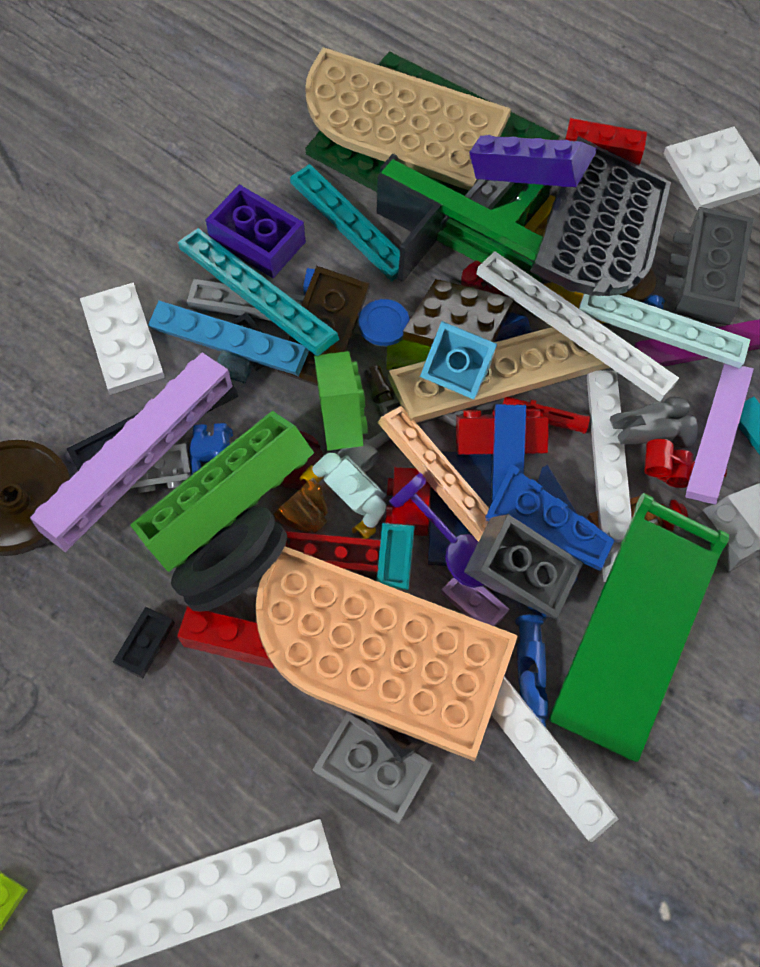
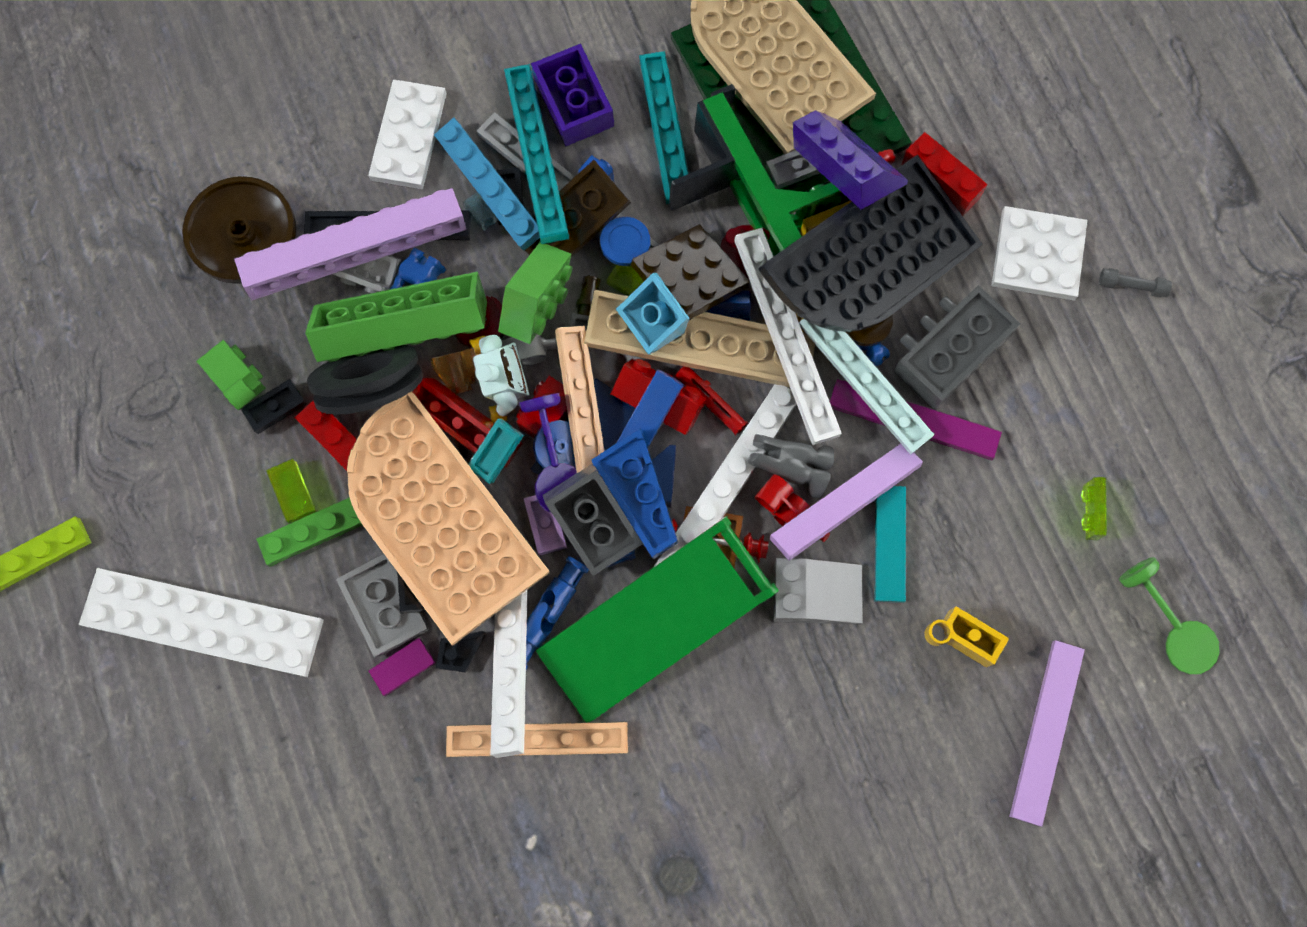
camera: 35 degrees right, 10 degrees up
(83, 634) = (231, 374): none -> bright green hinge
(211, 712) = (291, 491): none -> clear neon green plate
(256, 738) = (308, 532): none -> bright green plate
(429, 817) = (402, 667): none -> magenta tile
(446, 515) = (562, 441): none -> blue piece
(477, 774) = (461, 654): none -> black piece
(621, 796) = (543, 739): none -> light nougat tile

